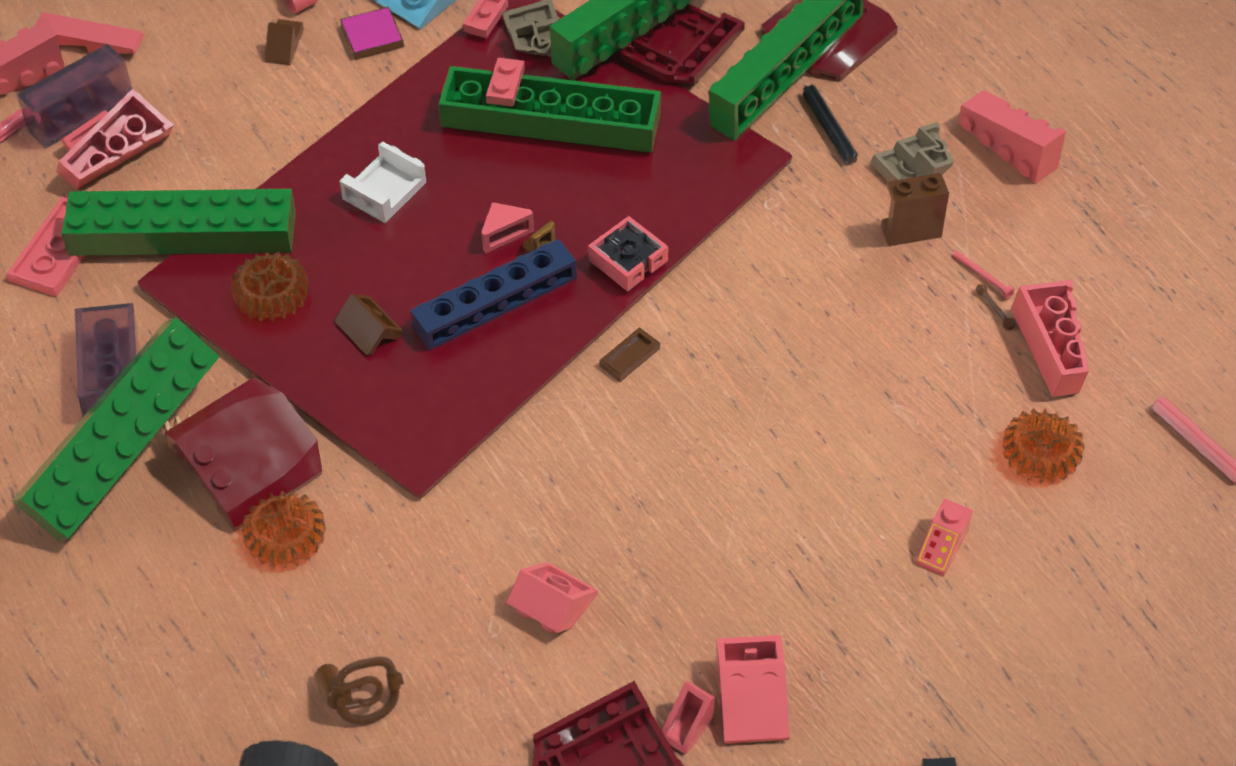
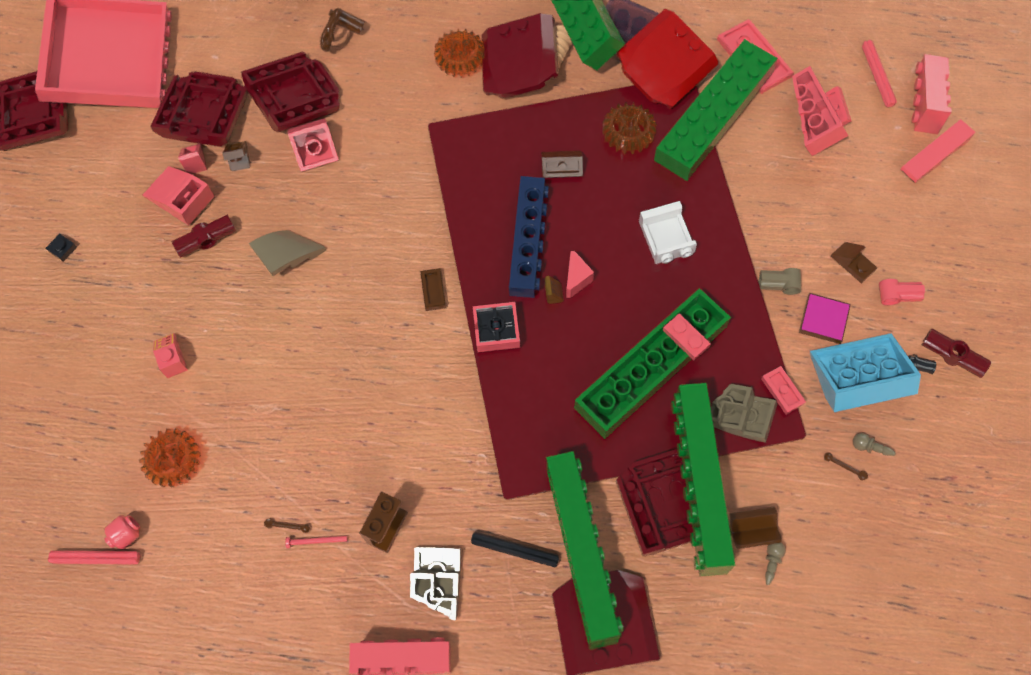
camera: 130 degrees right, 15 degrees up
(74, 95) = (872, 109): brick -> none
(138, 295) = (666, 59): none -> red wedge
(356, 75) = (787, 280): none -> dark tan piece
(497, 671) = (292, 90): none -> dark red wedge
(641, 664) = (237, 155): none -> slope
(717, 514) = (284, 249): none -> dark tan slope
(778, 618) = (203, 236): none -> dark red piece
(1053, 334) = (233, 535): coral wedge -> none
(1152, 426) = (121, 532): none -> coral head

